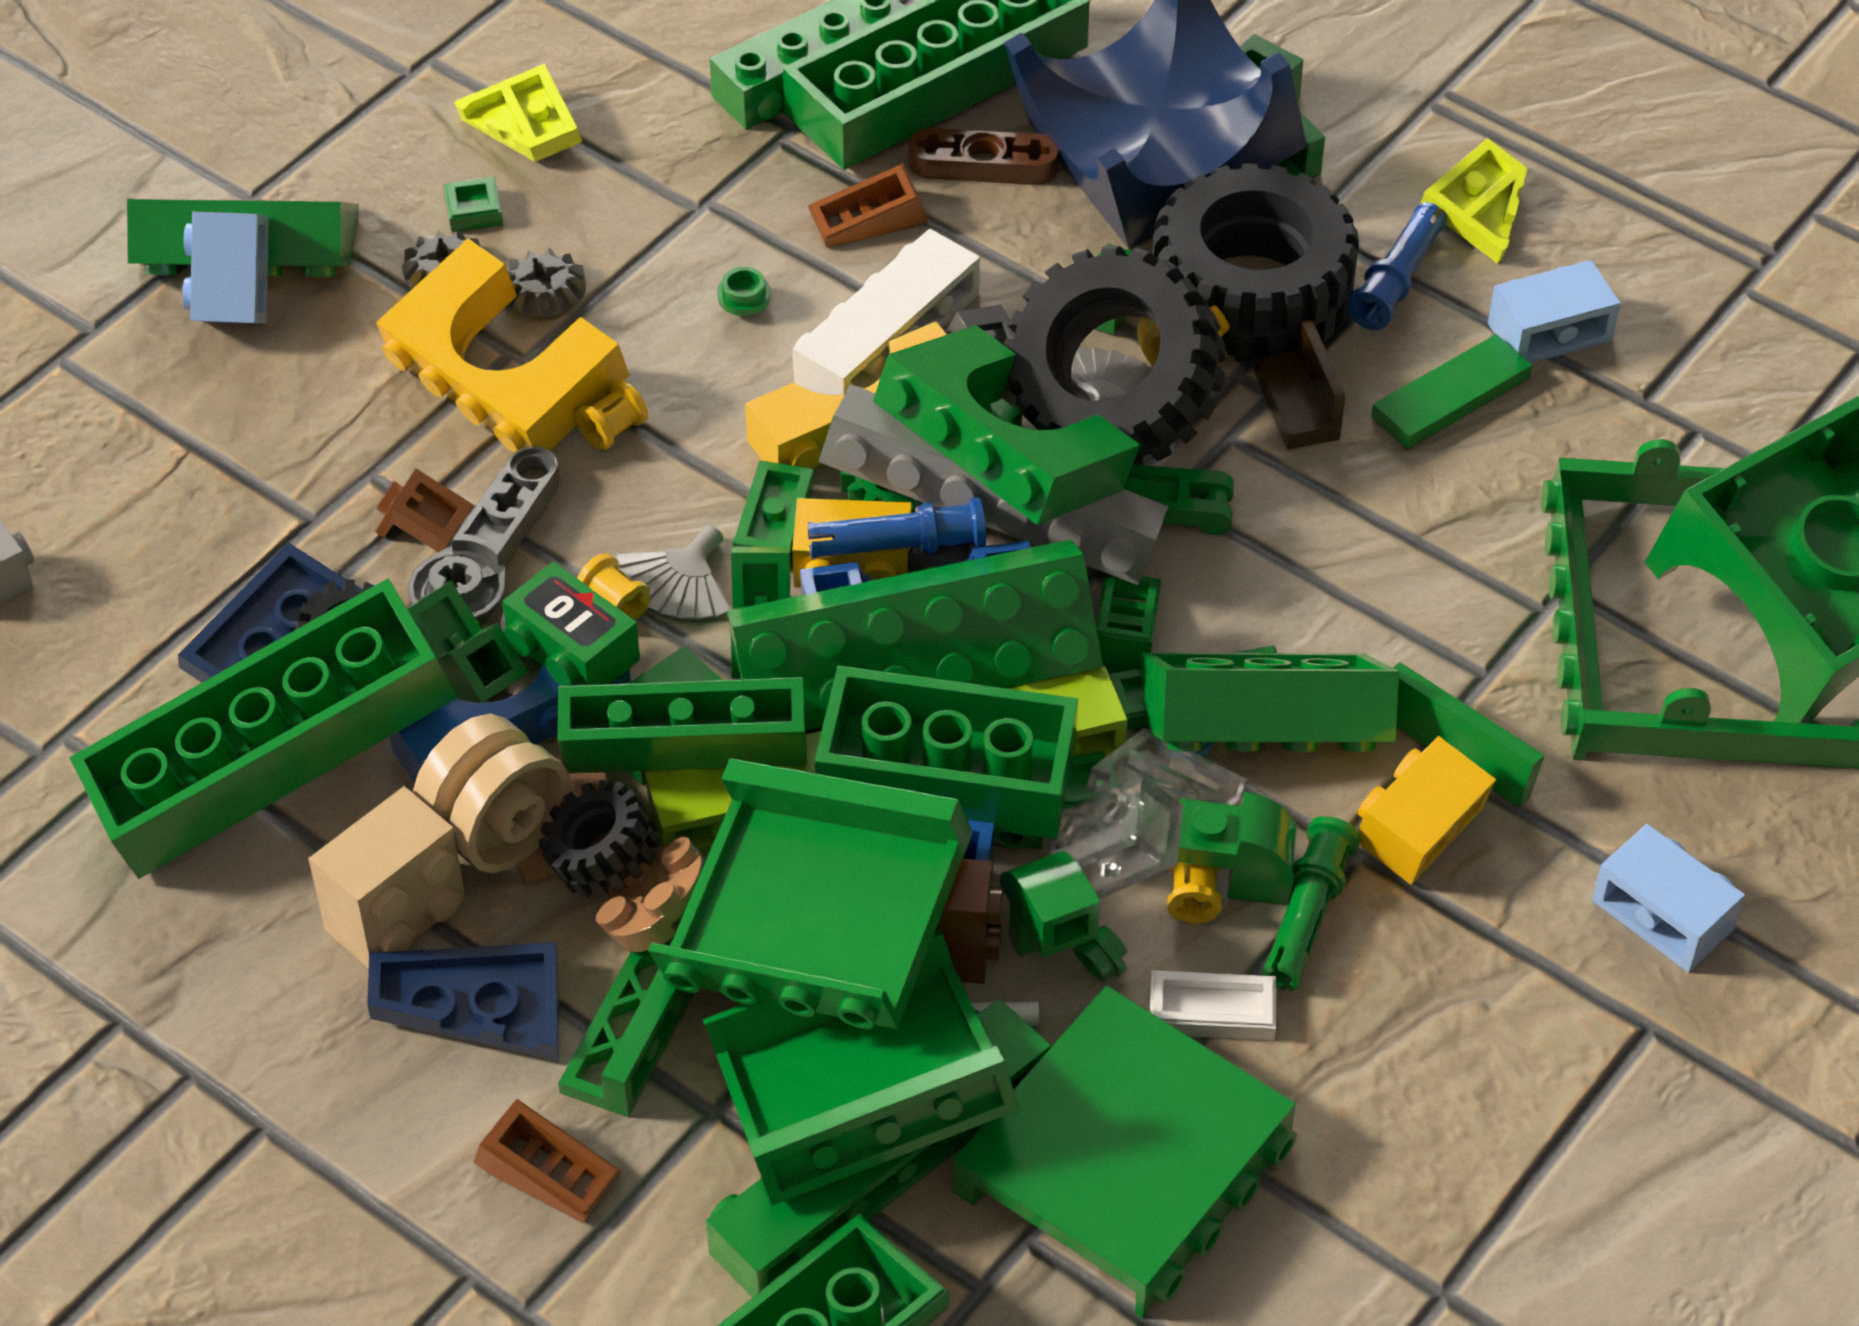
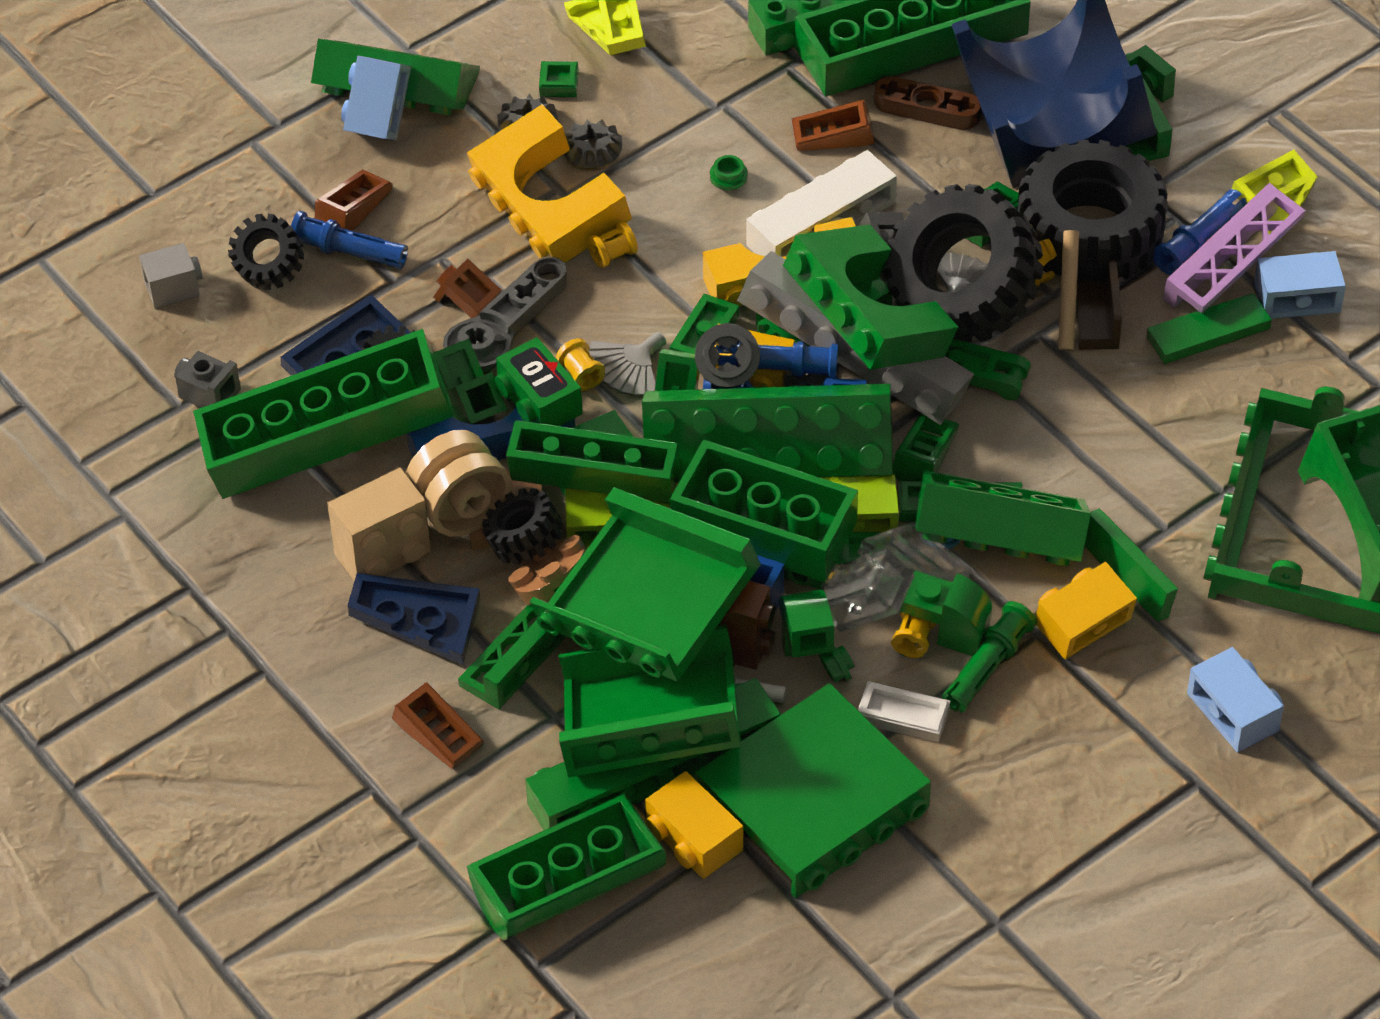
camera: 15 degrees right, 0 degrees up
(74, 708) = (206, 379): none -> dark grey brick
(98, 485) = (257, 232): none -> black tyre
(209, 472) = (331, 238): none -> blue pin
(220, 425) = (350, 203): none -> dark orange slope
(824, 514) = (726, 337): none -> dark grey gear
(972, 1239) = (694, 825): none -> yellow brick
(1260, 370) = (1068, 290): none -> tan bar
(1451, 271) = (1229, 242): none -> lavender fence

